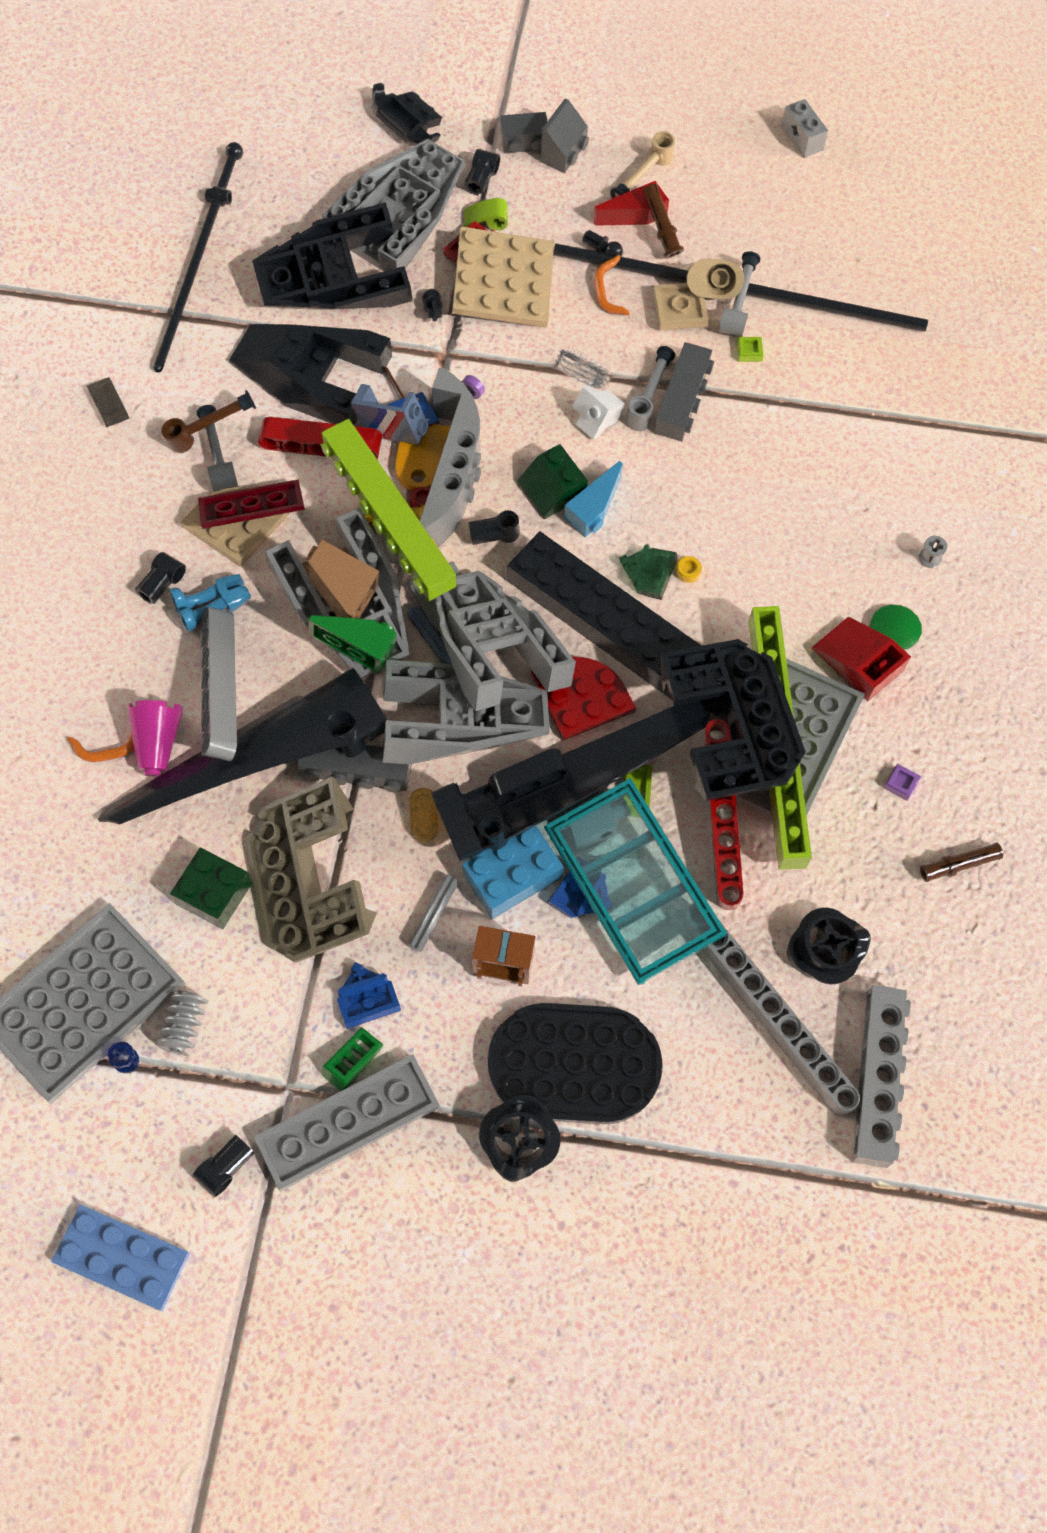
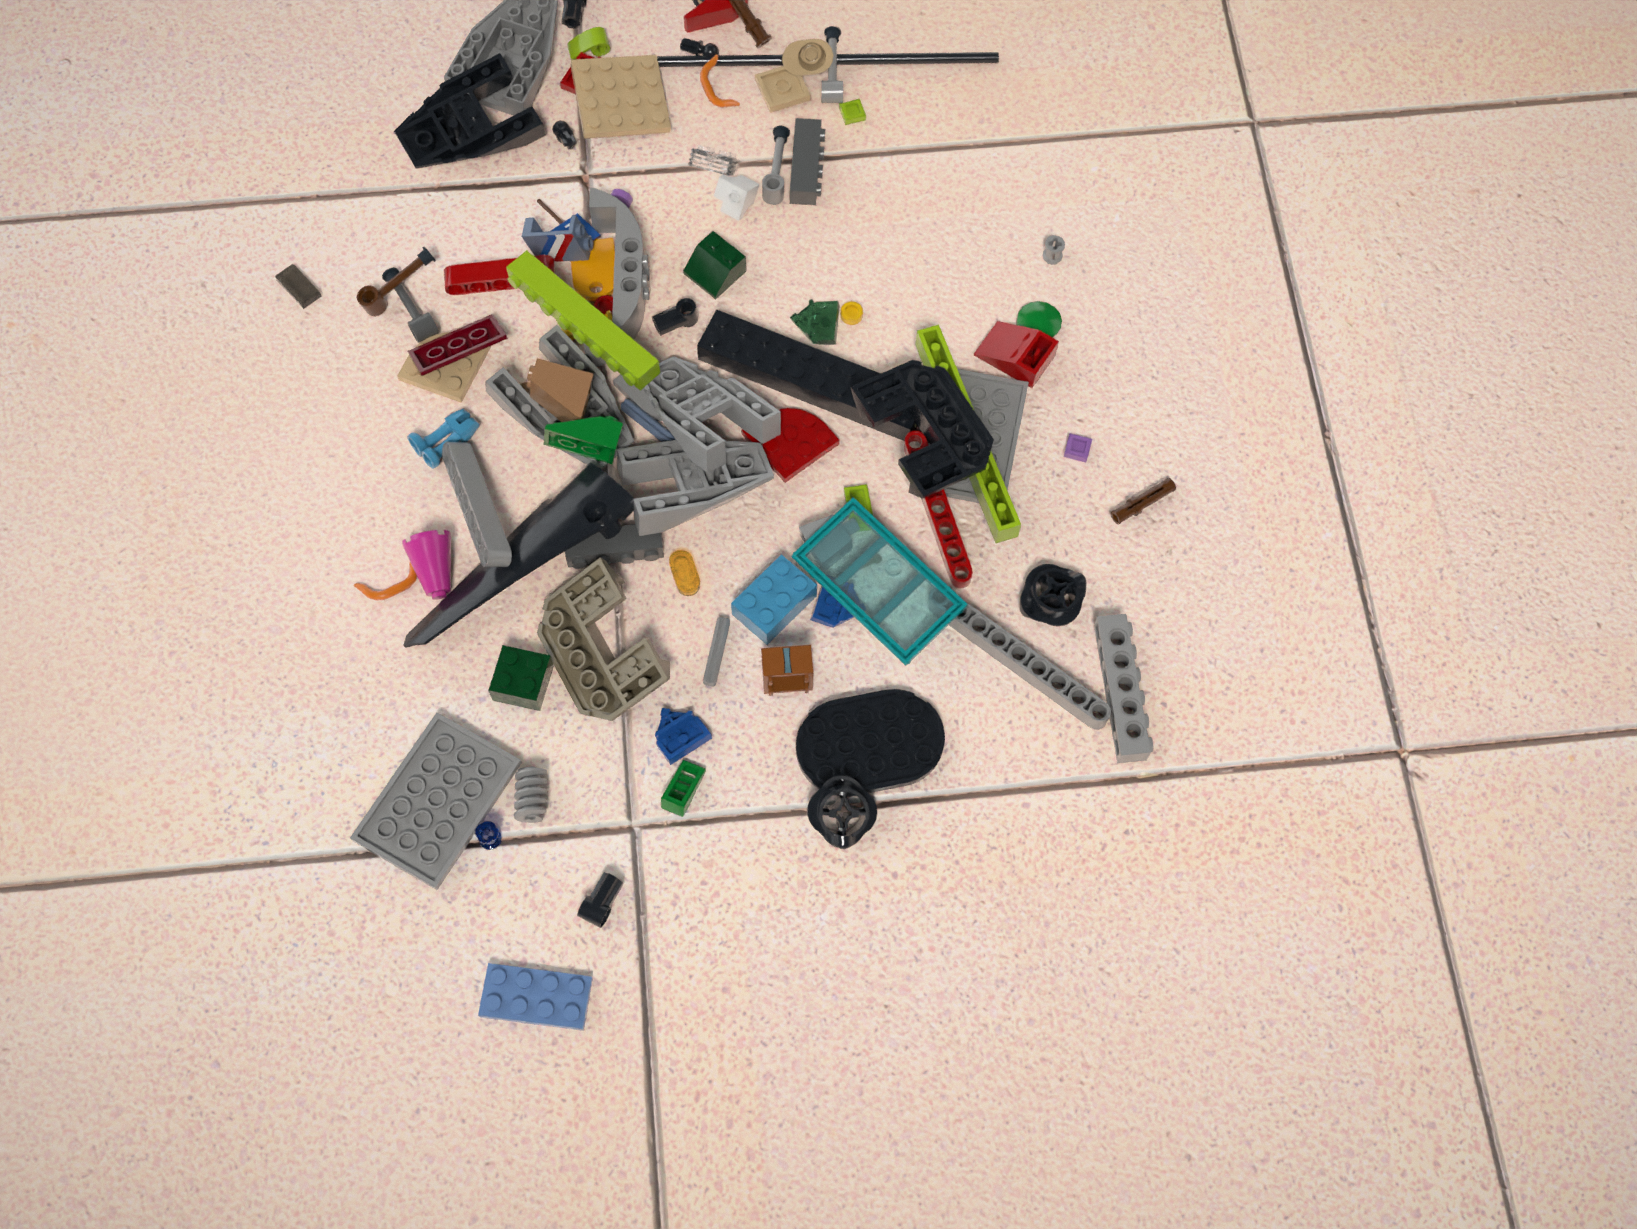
camera: 15 degrees left, 0 degrees up
(163, 572) = (396, 422): black piece -> none
(218, 197) = (342, 81): black bar -> none
(298, 358) = (459, 210): black wedge -> none
(346, 1122) = (693, 839): light grey plate -> none
(555, 781) = (787, 518): black panel -> none
(590, 506) = (752, 280): dark azure slope -> none

